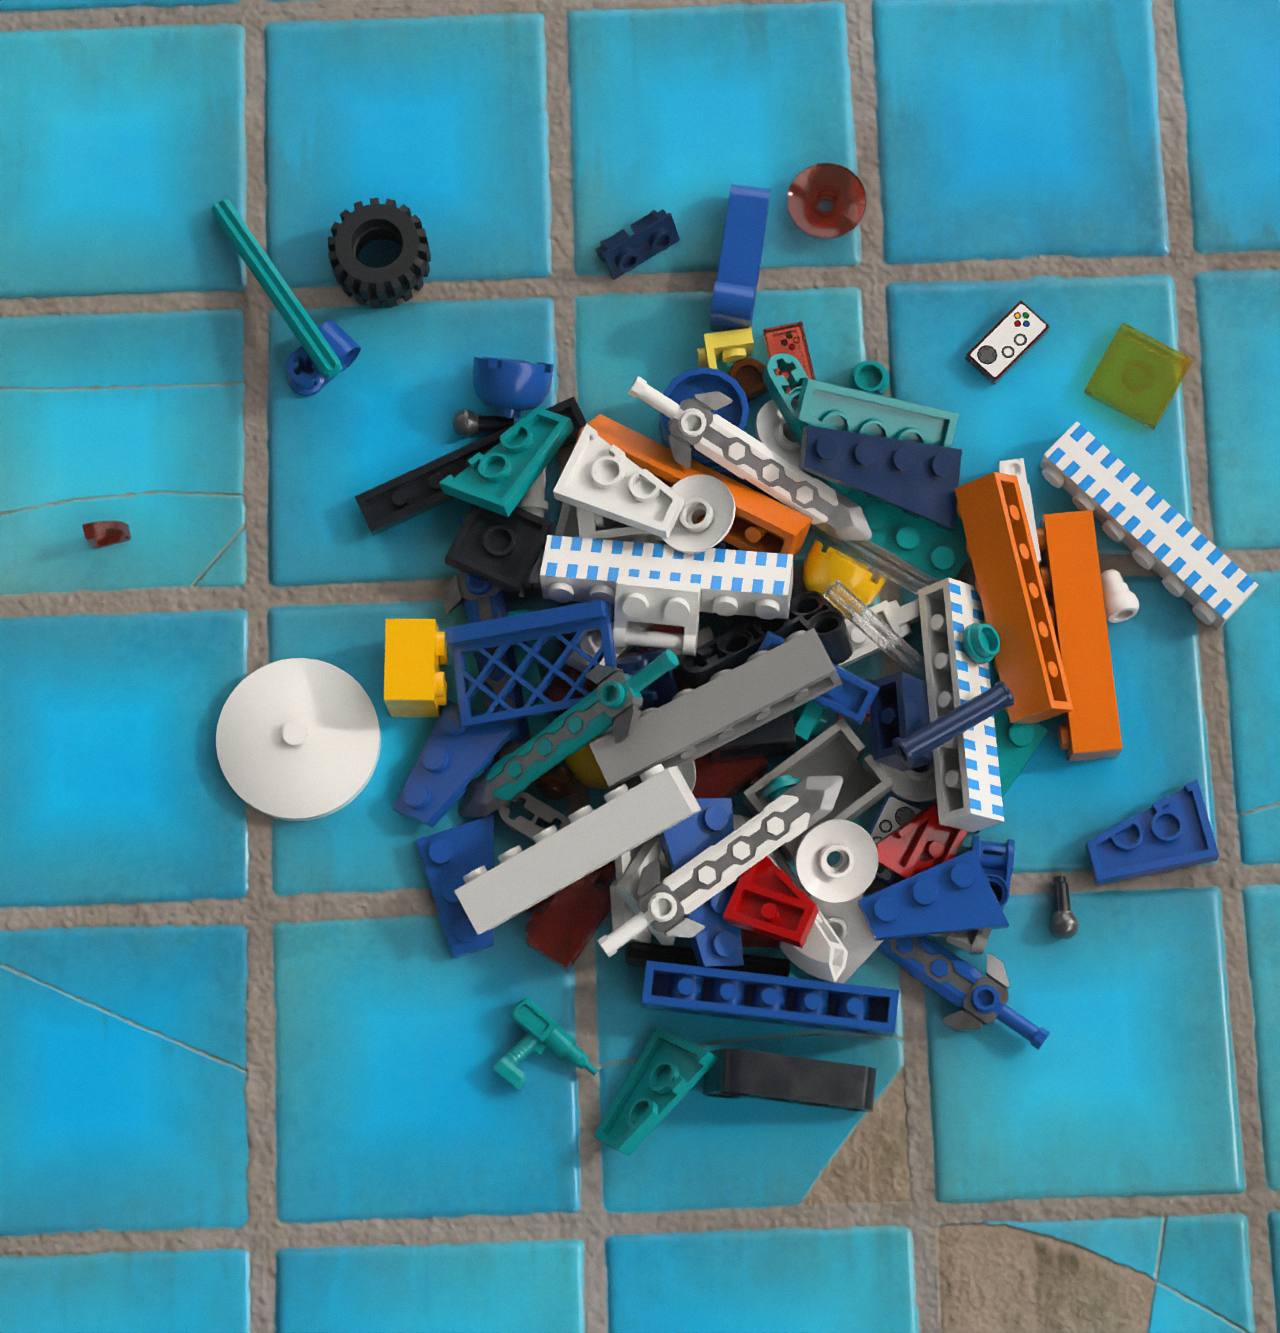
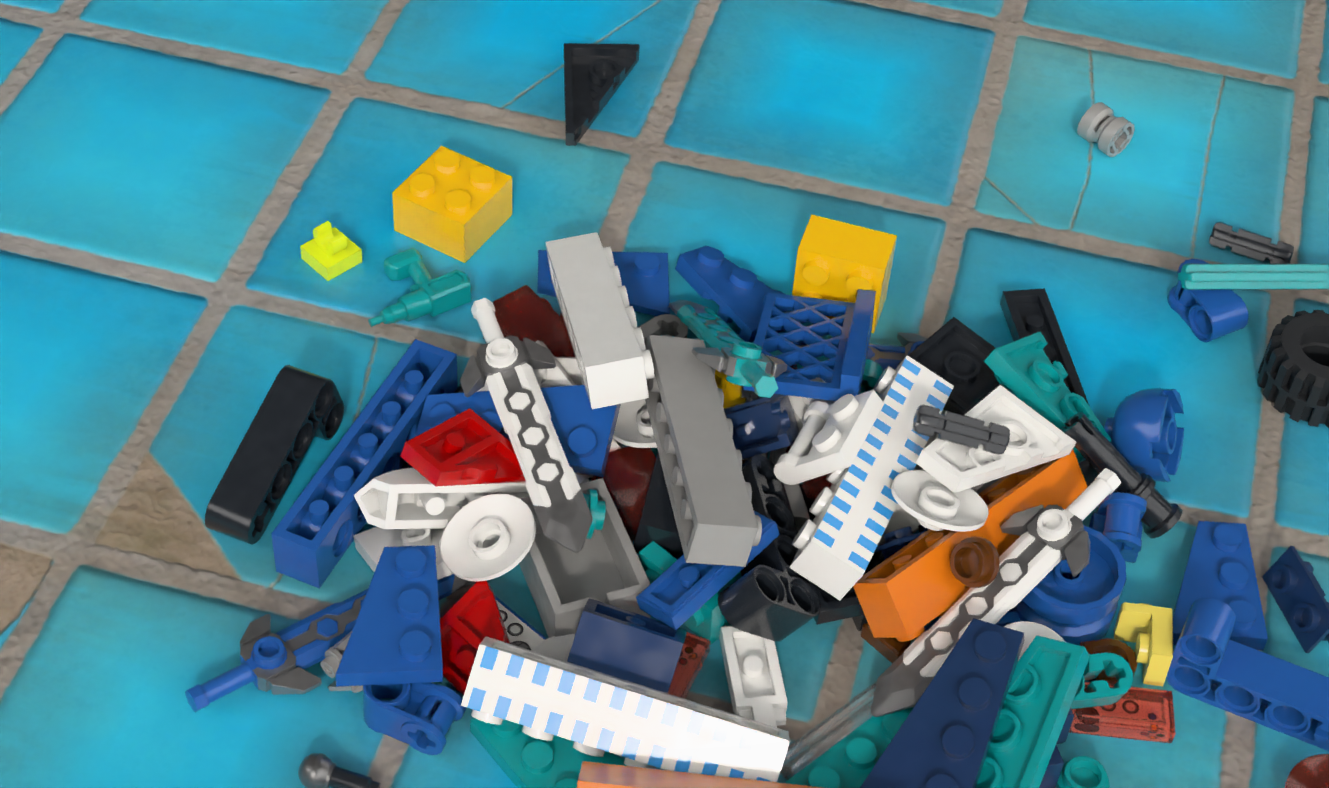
camera: 100 degrees right, 30 degrees down
(106, 533) = (1052, 121): clear red tile -> none
(109, 478) = (1105, 129): none -> light grey wheel
(182, 992) = (591, 80): none -> black wing
(219, 331) = (1250, 244): none -> black axle
(298, 739) = (777, 189): white dish -> none
(425, 1052) = (452, 203): none -> yellow brick
(468, 423) = (1106, 402): piece -> none
(516, 1146) = (330, 252): none -> neon yellow tile
(585, 381) = (1101, 454): none -> black pin
(619, 382) = (1121, 522): none -> blue piece
(635, 505) = (961, 429): none -> black axle
(647, 307) = (1223, 569): none -> blue wing
(652, 1089) = (327, 349): teal wing -> none
(743, 477) = (975, 562): none -> reddish brown plate
(823, 568) = (830, 661): yellow cylinder -> none
(875, 629) = (756, 655): clear axle -> none
(952, 724) = (595, 659): dark blue pin -> none
(981, 642) = (693, 746): teal plate -> none

